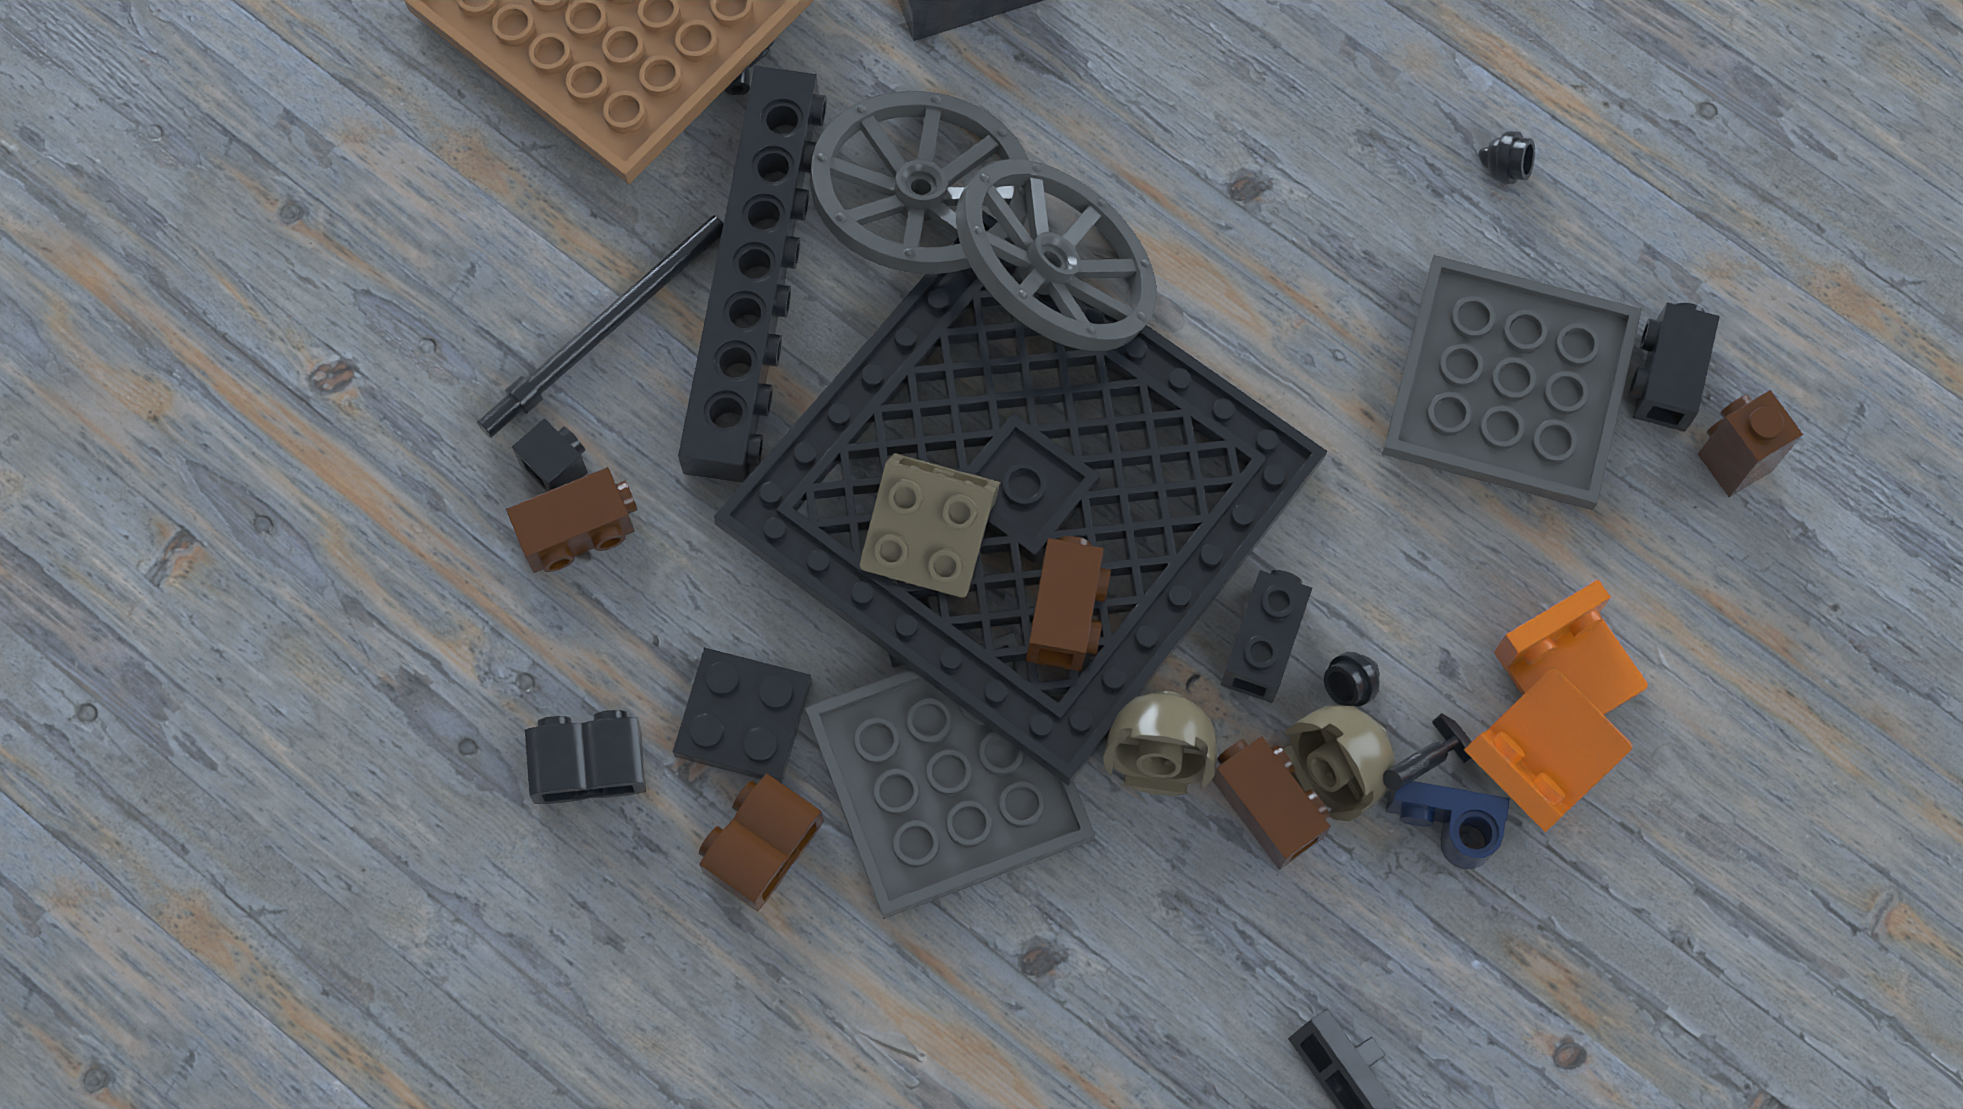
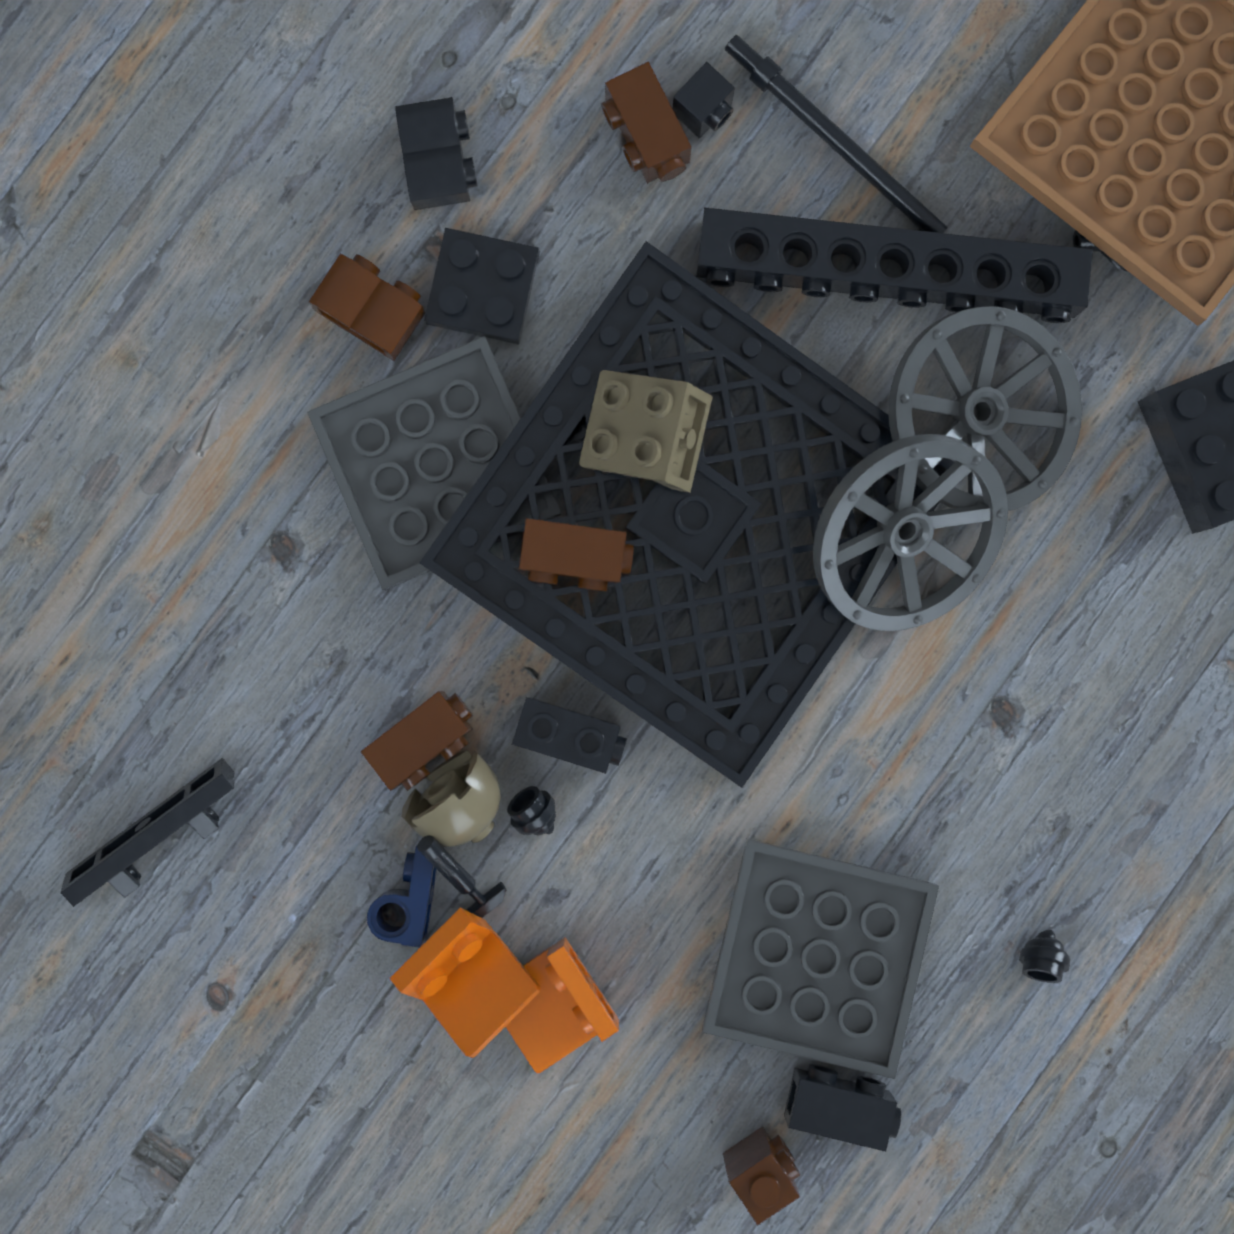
camera: 90 degrees right, 15 degrees up
(1162, 744) = (465, 644): dark tan cylinder -> none

